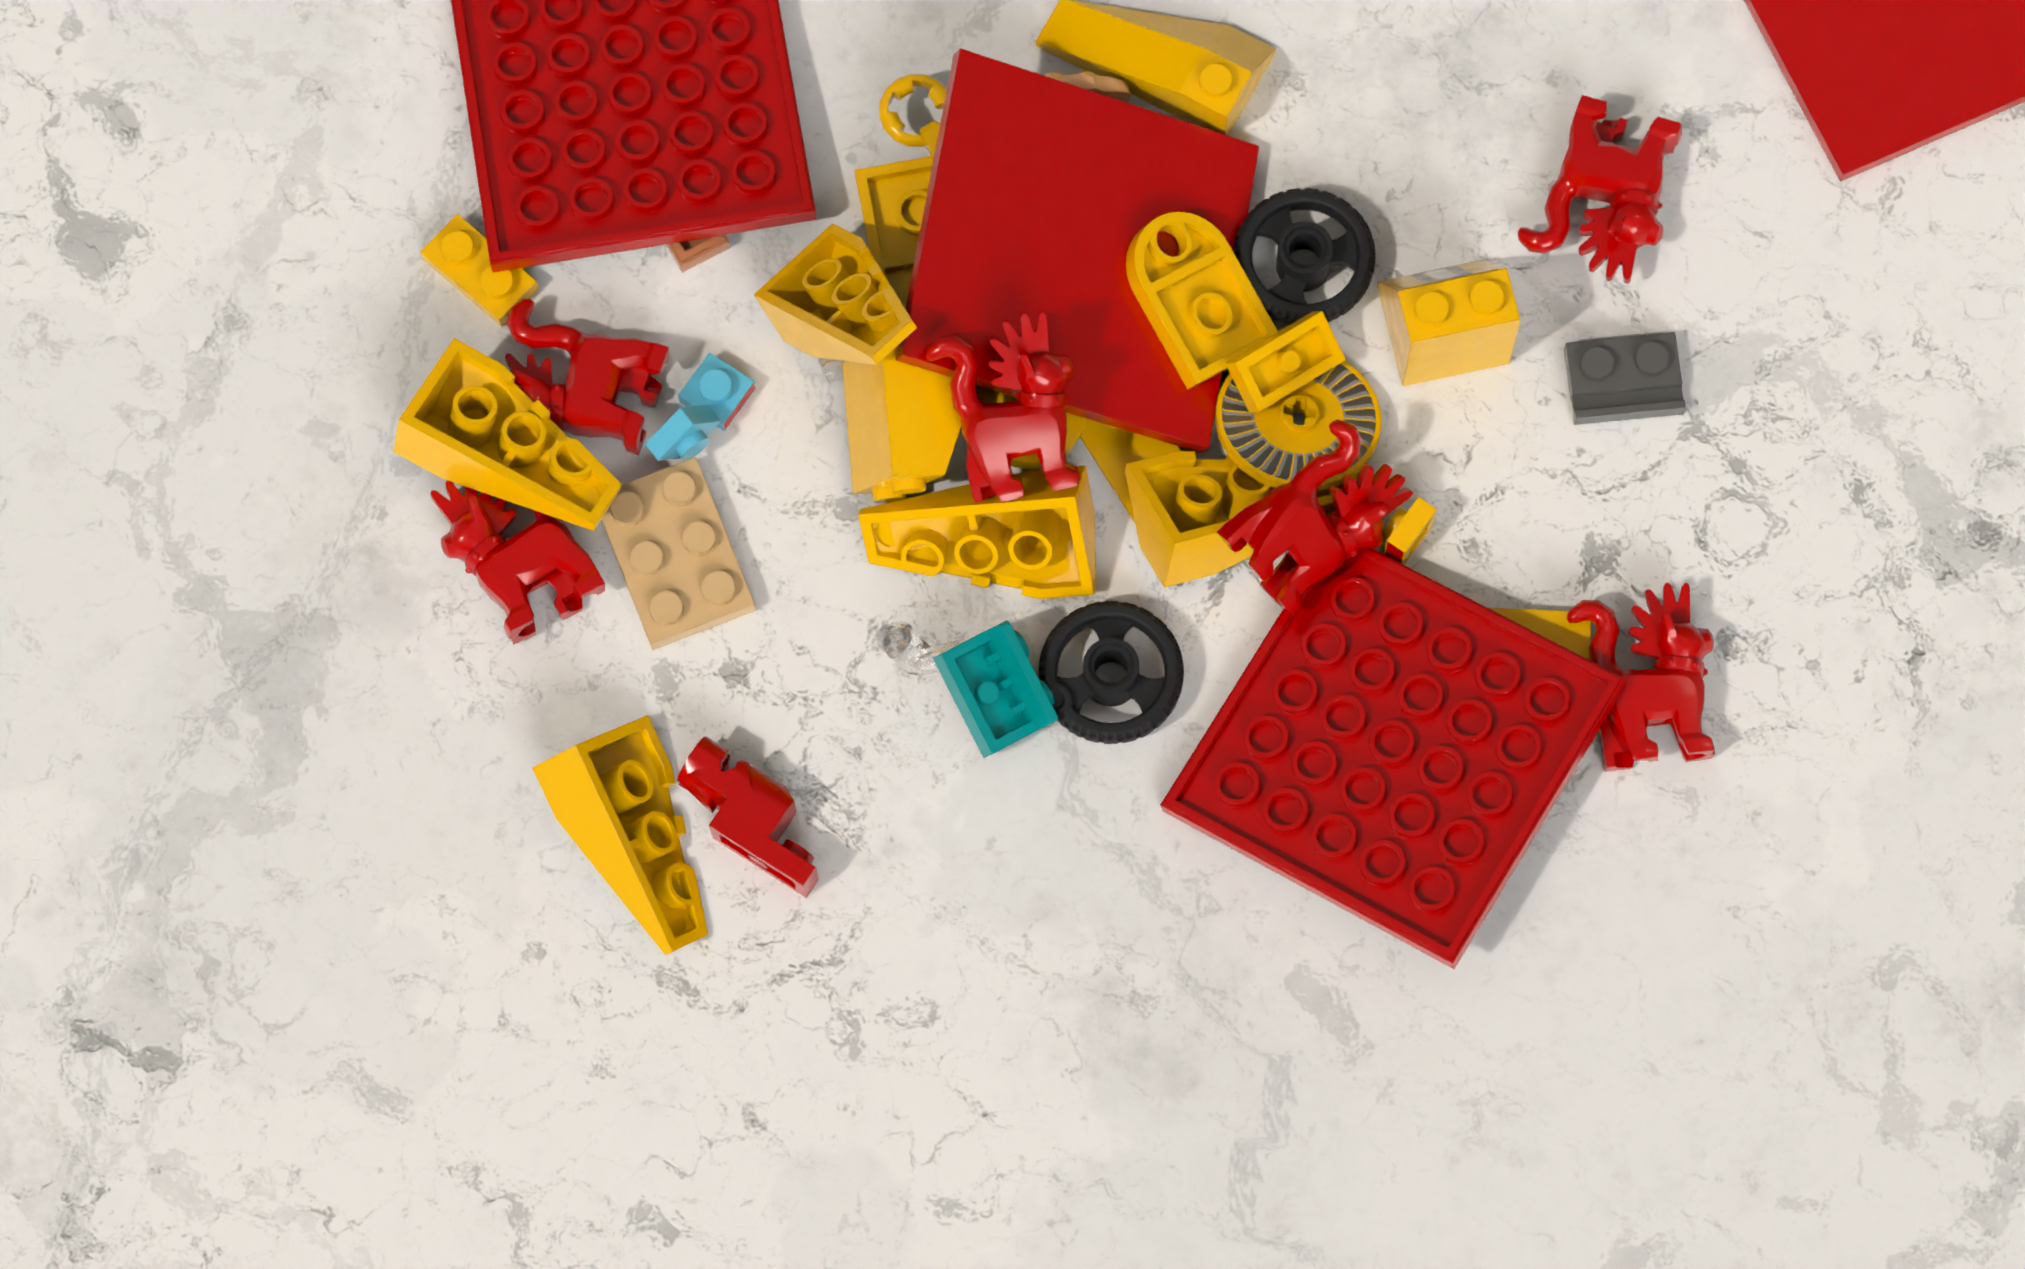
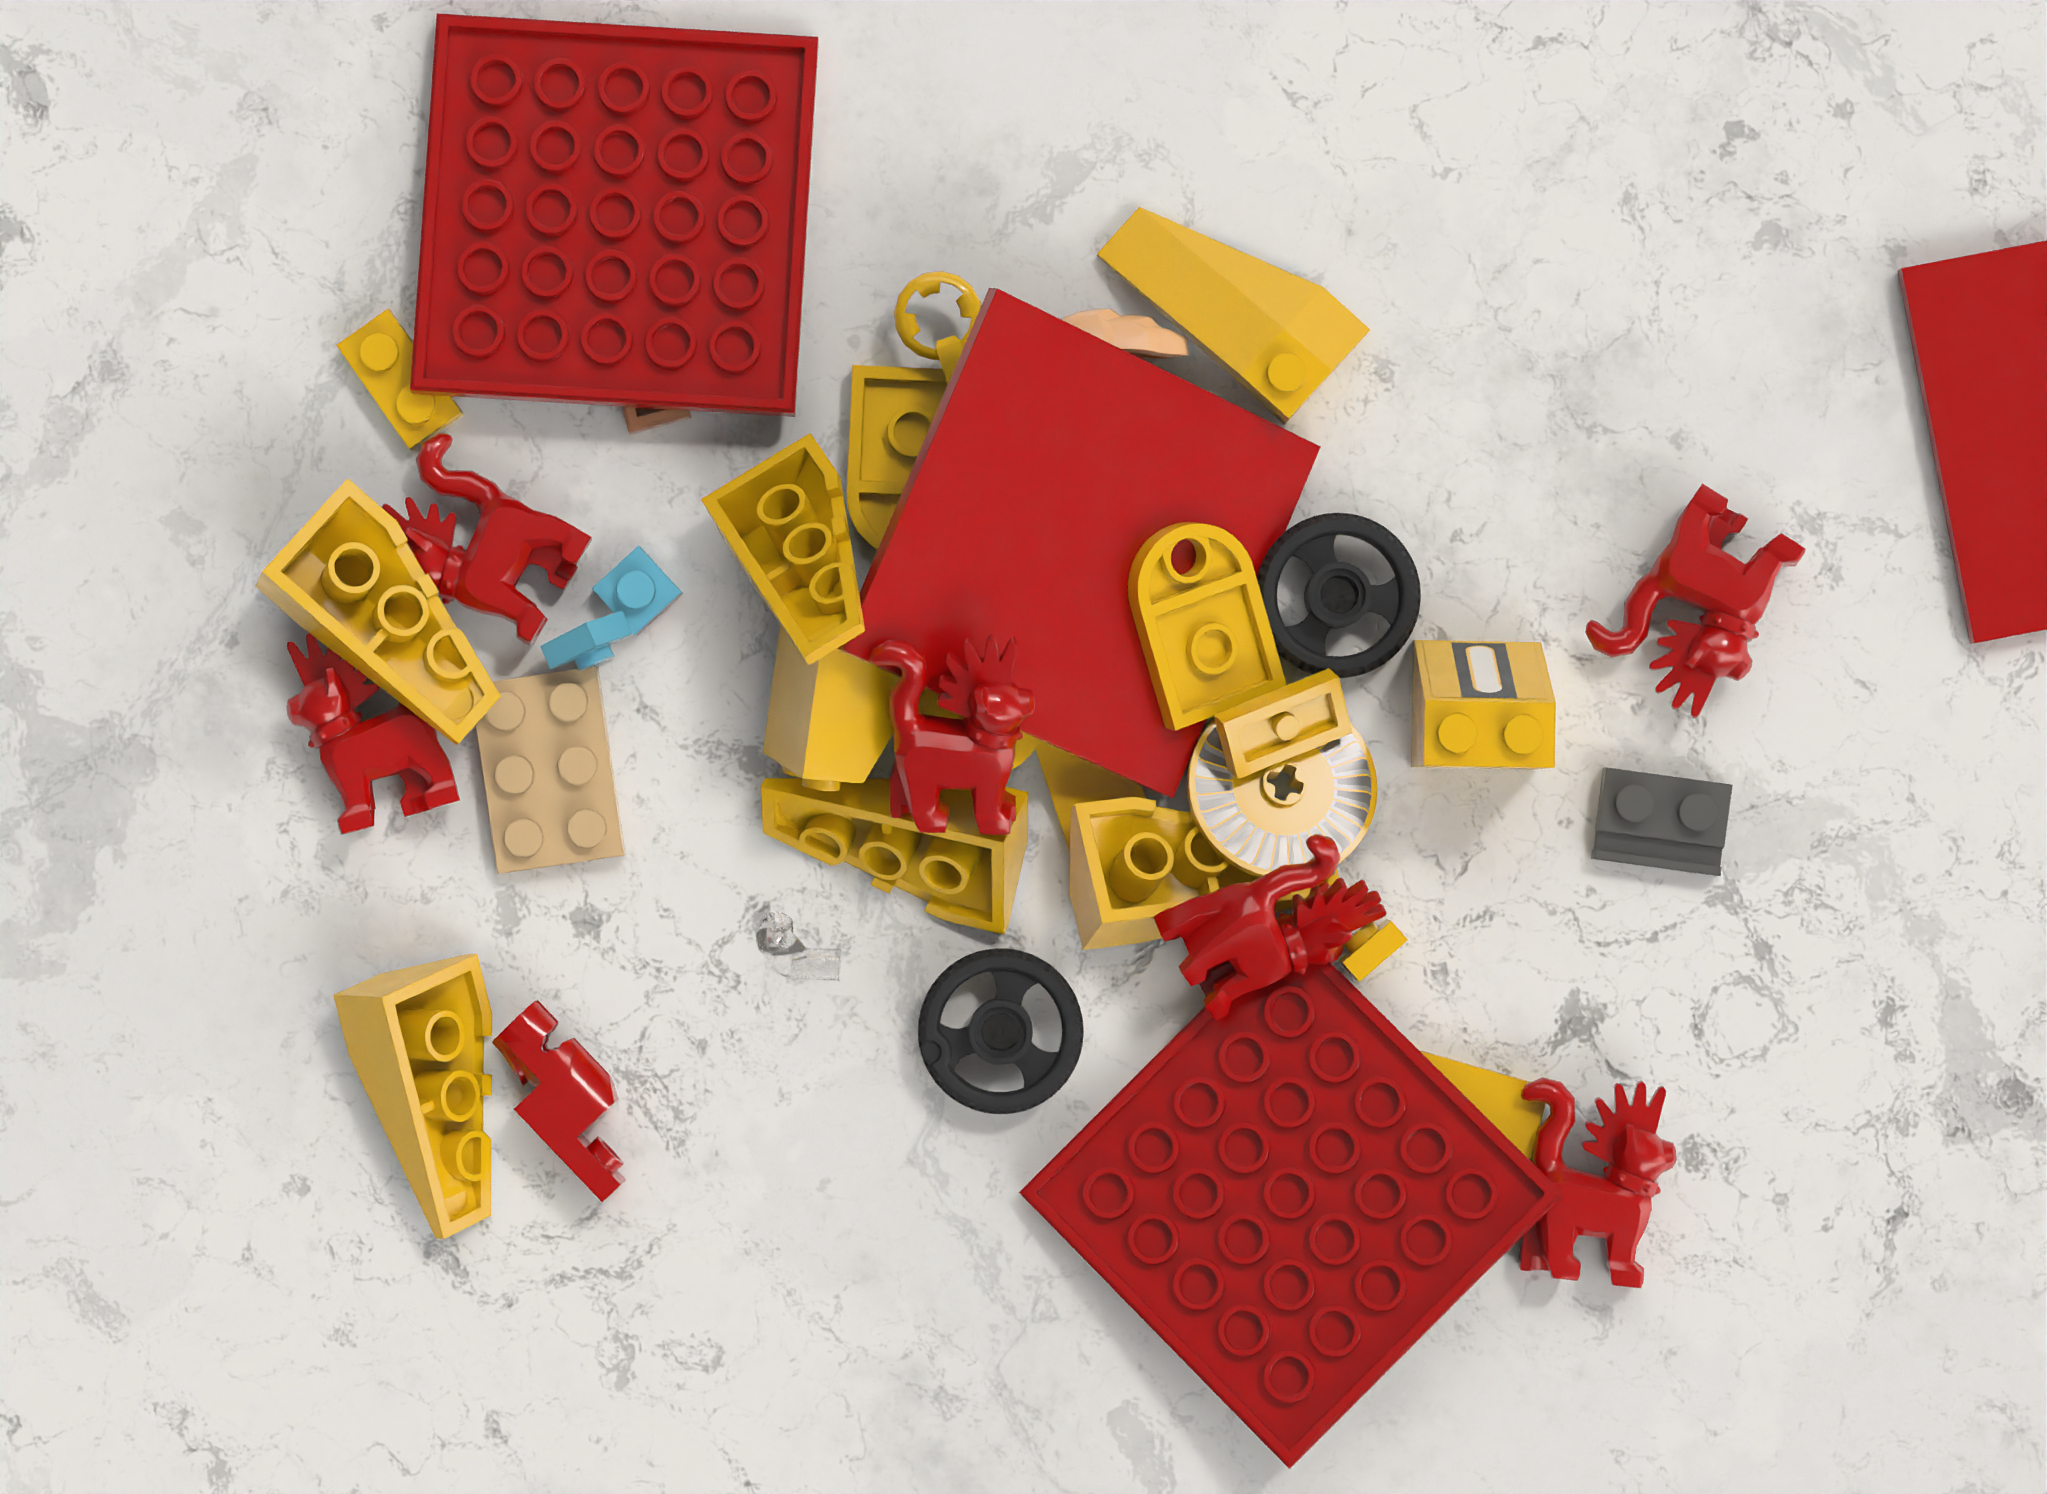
camera: 10 degrees right, 15 degrees up
(996, 688) = (867, 1023): teal bracket -> none

